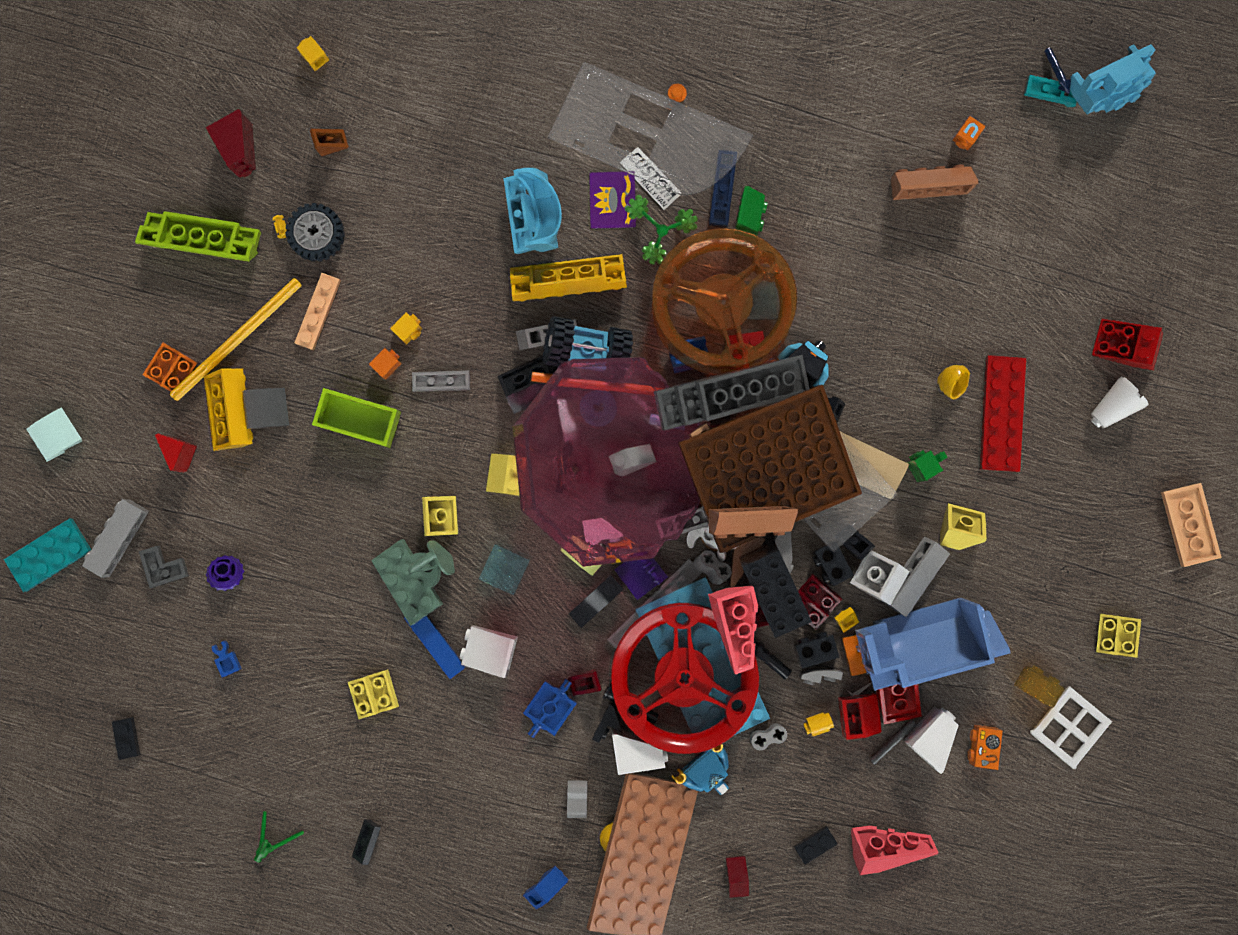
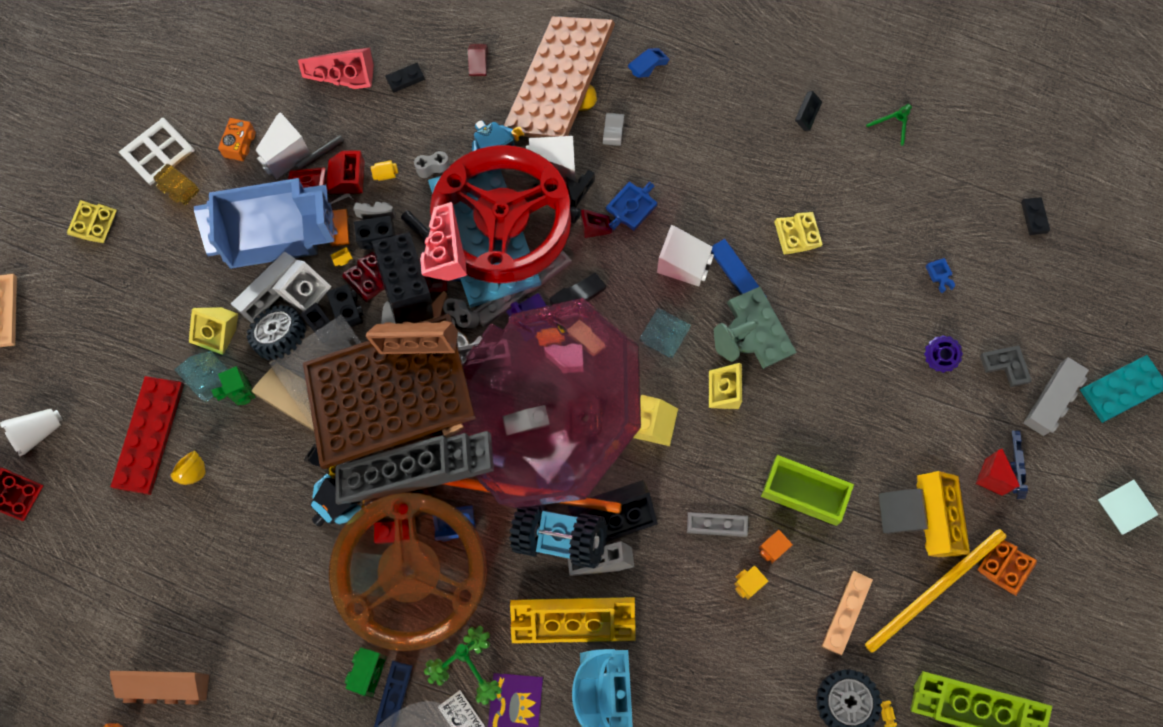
camera: 175 degrees left, 15 degrees down
(155, 464) = (1018, 466): none -> dark blue wing
(896, 526) = (276, 332): none -> black wheel
(960, 478) = (201, 374): none -> clear light blue slope

